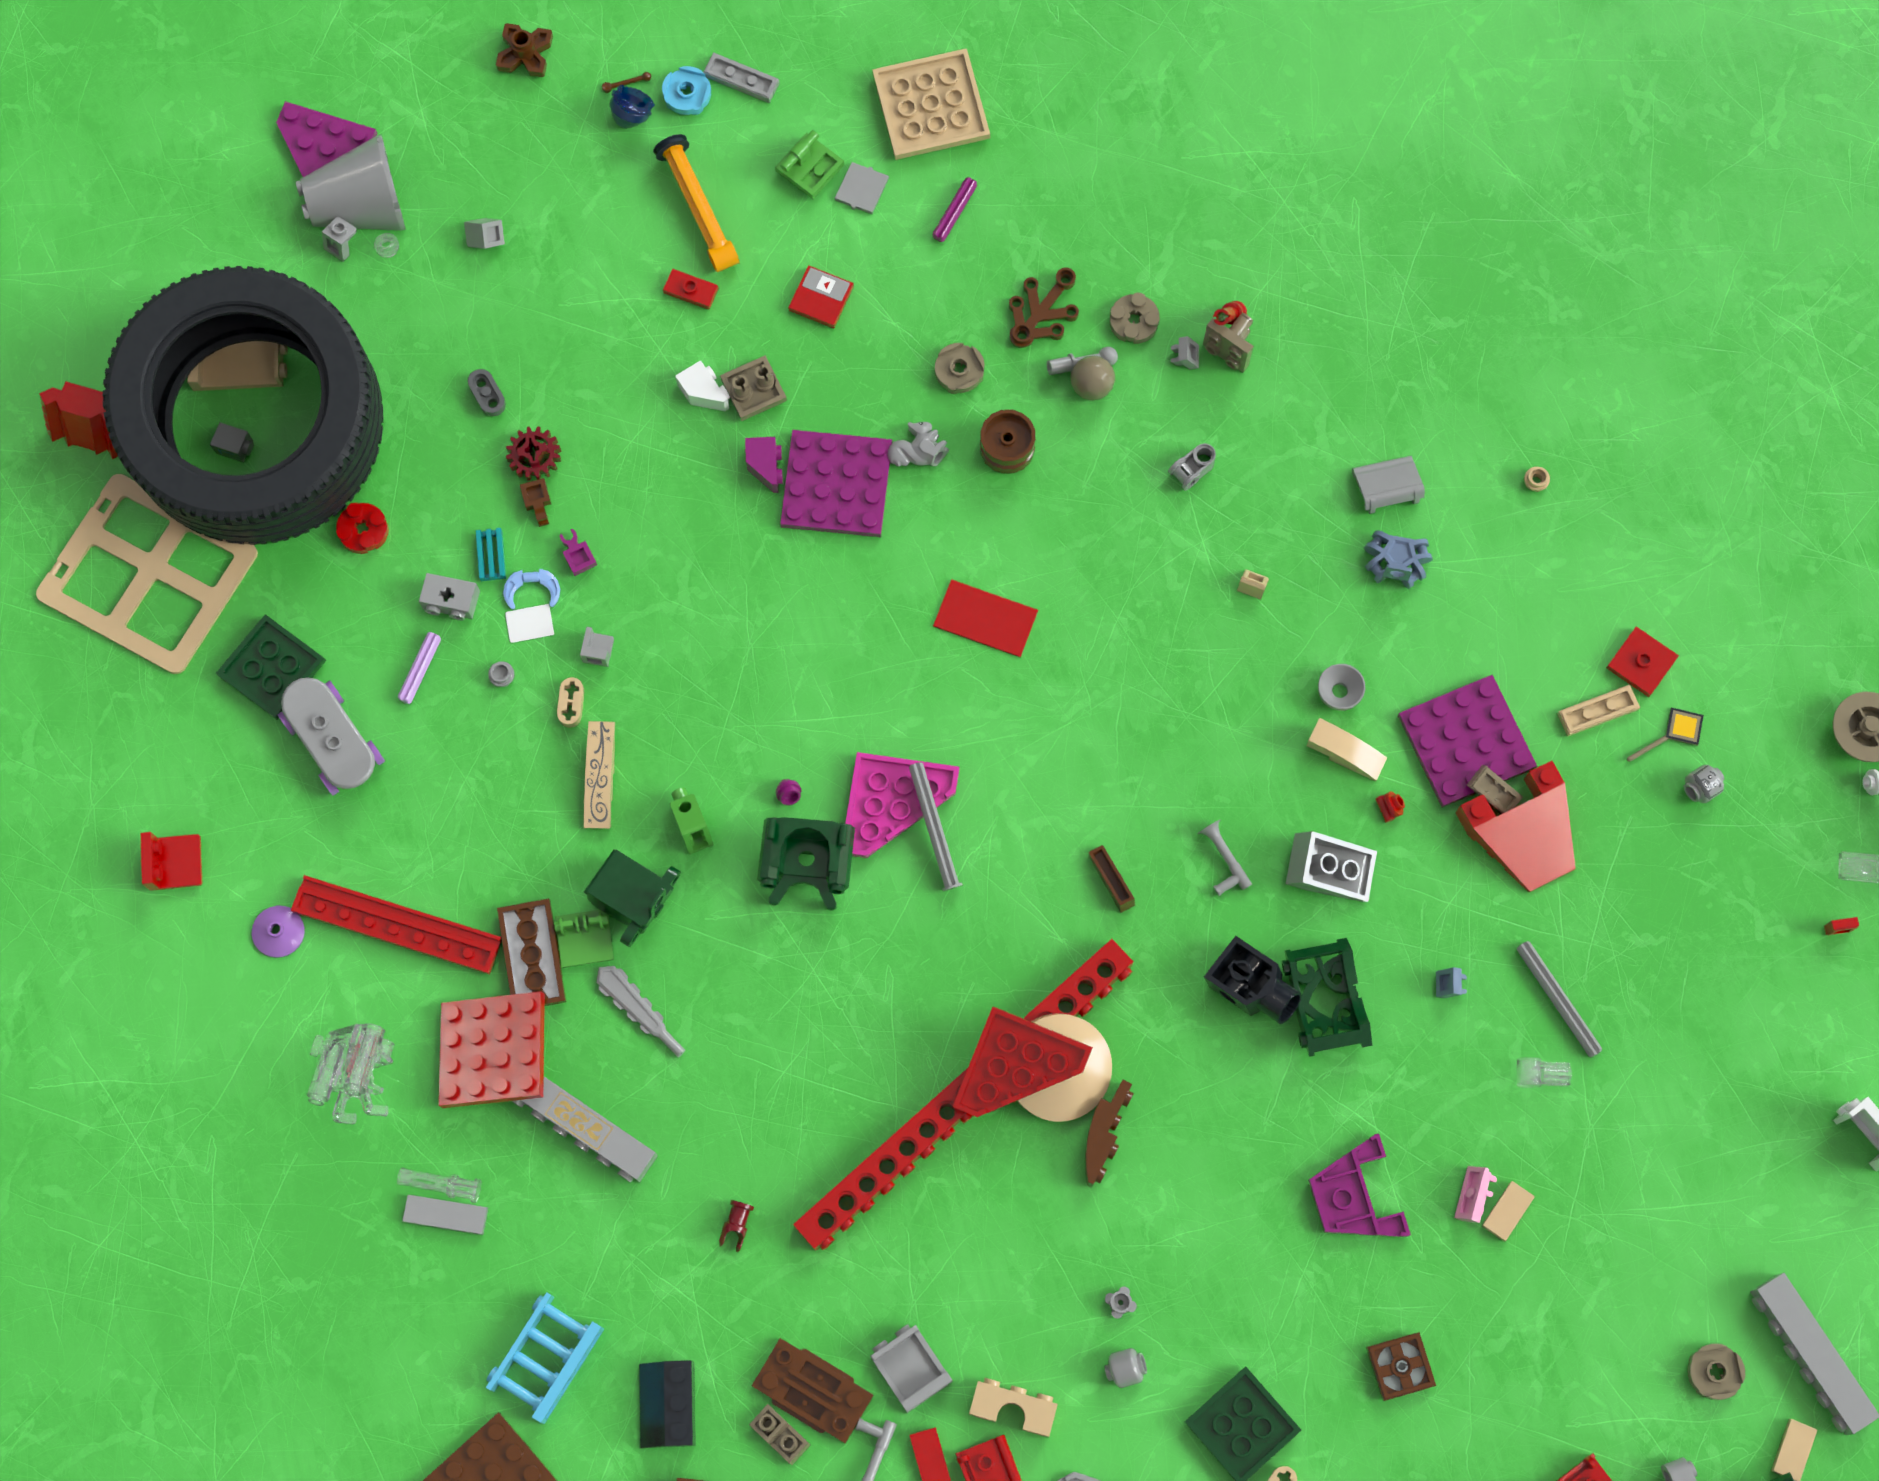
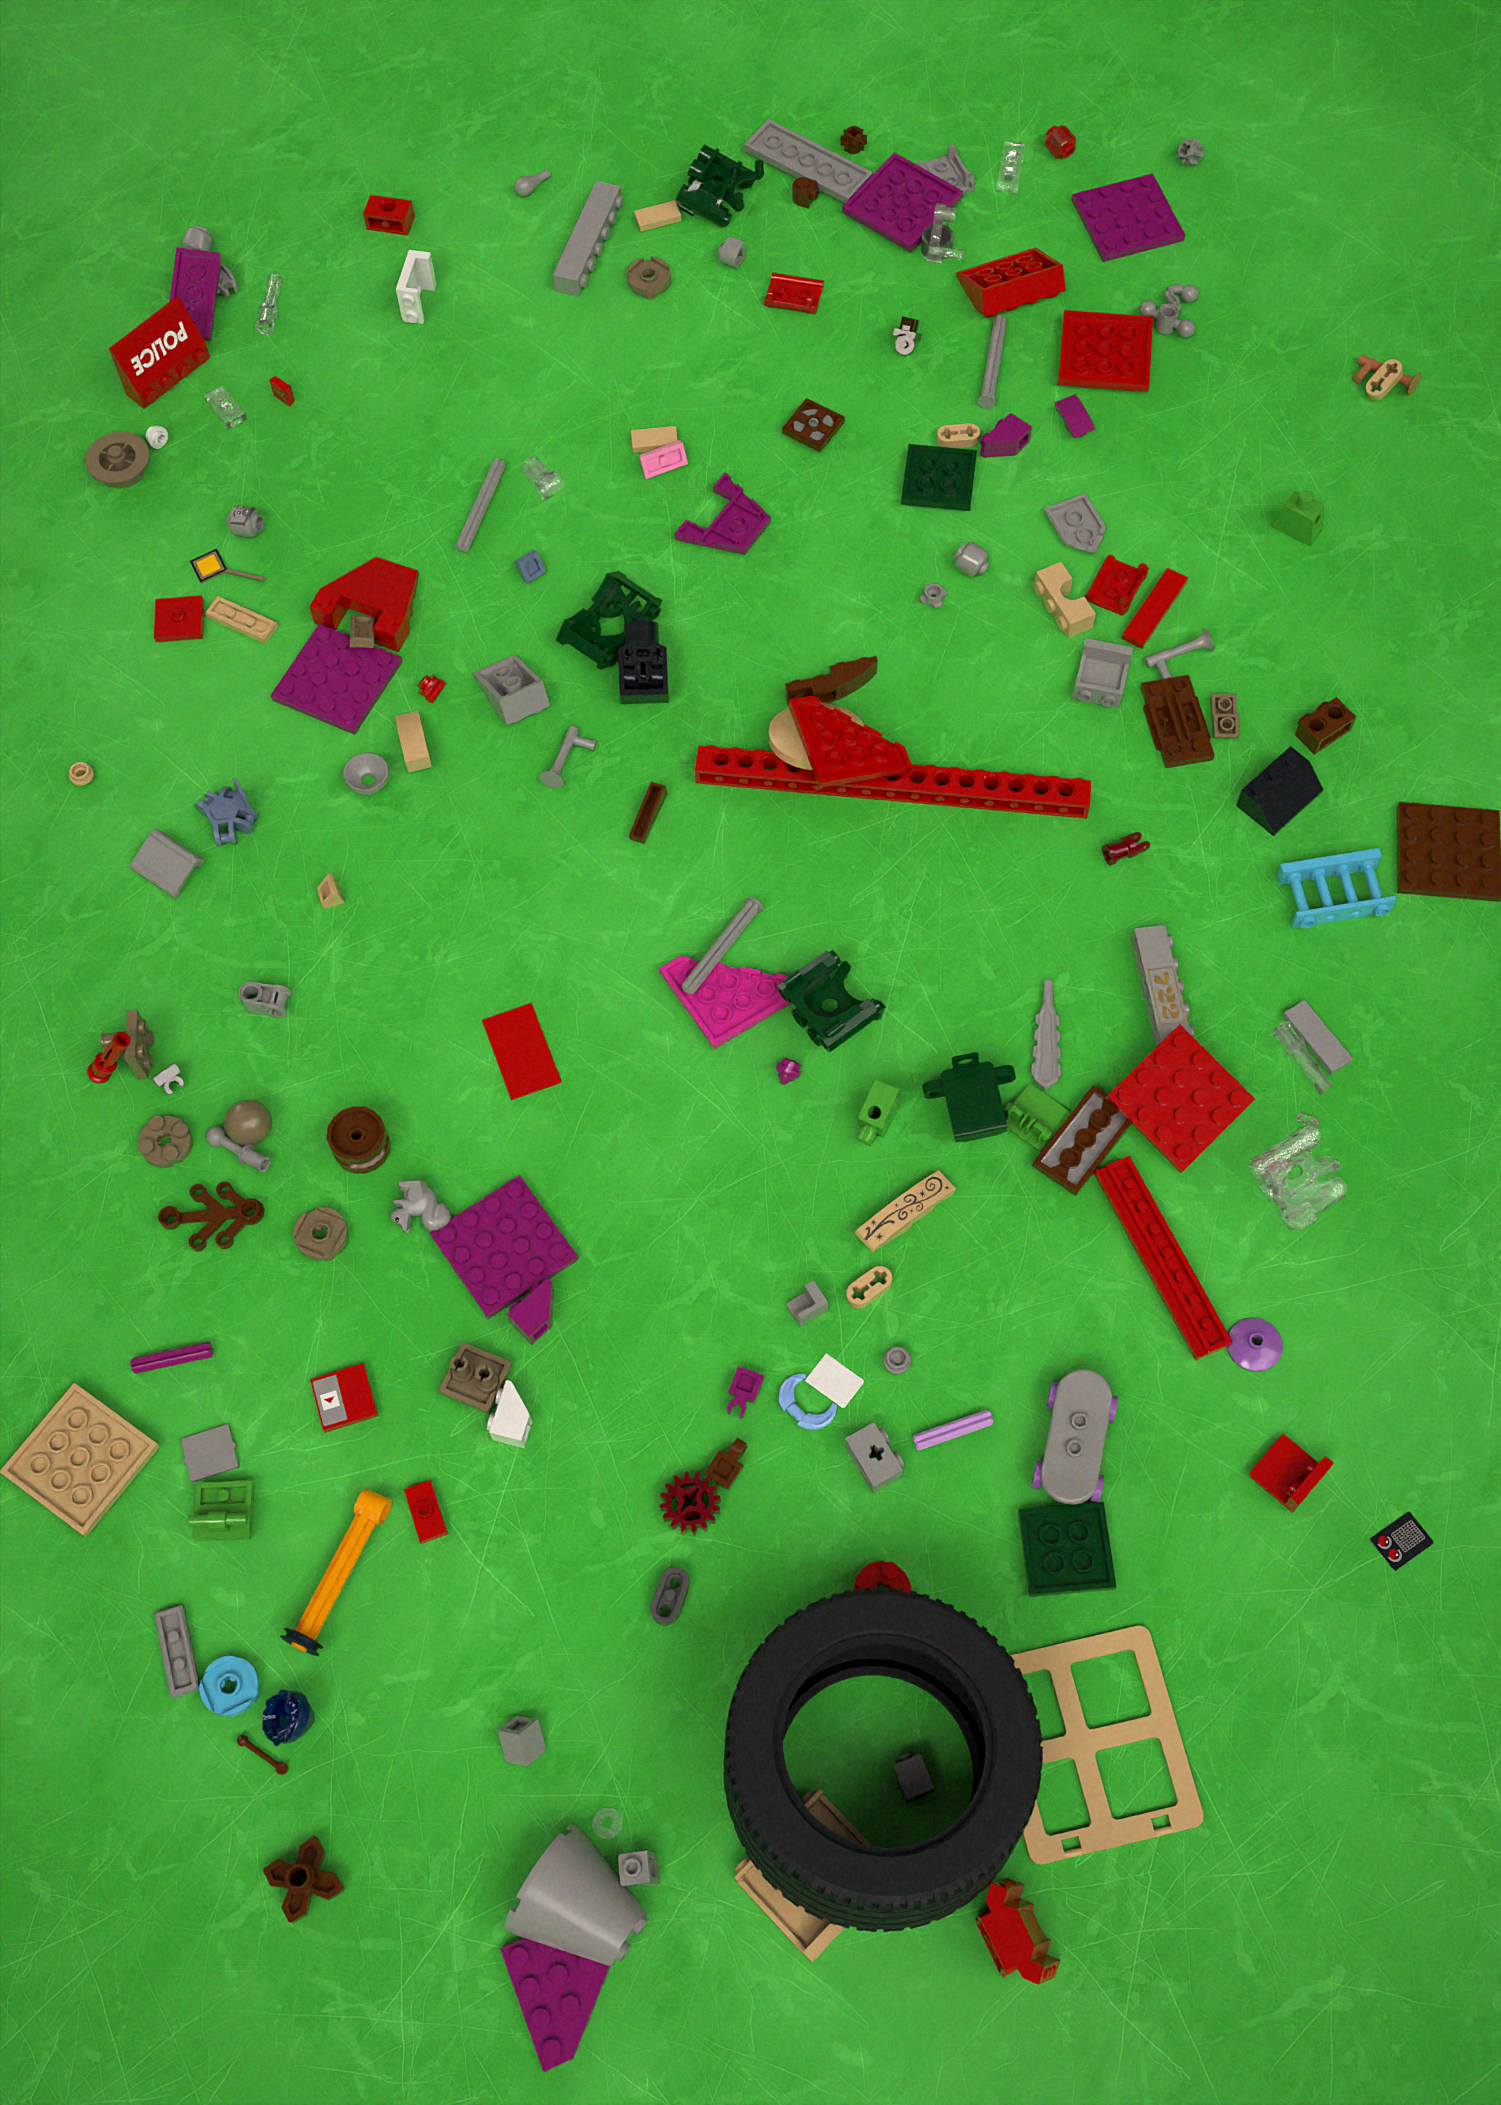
camera: 130 degrees left, 10 degrees down
(62, 896) = (1402, 1541): none -> black sticker
(488, 534) = (822, 1444): teal tile -> none

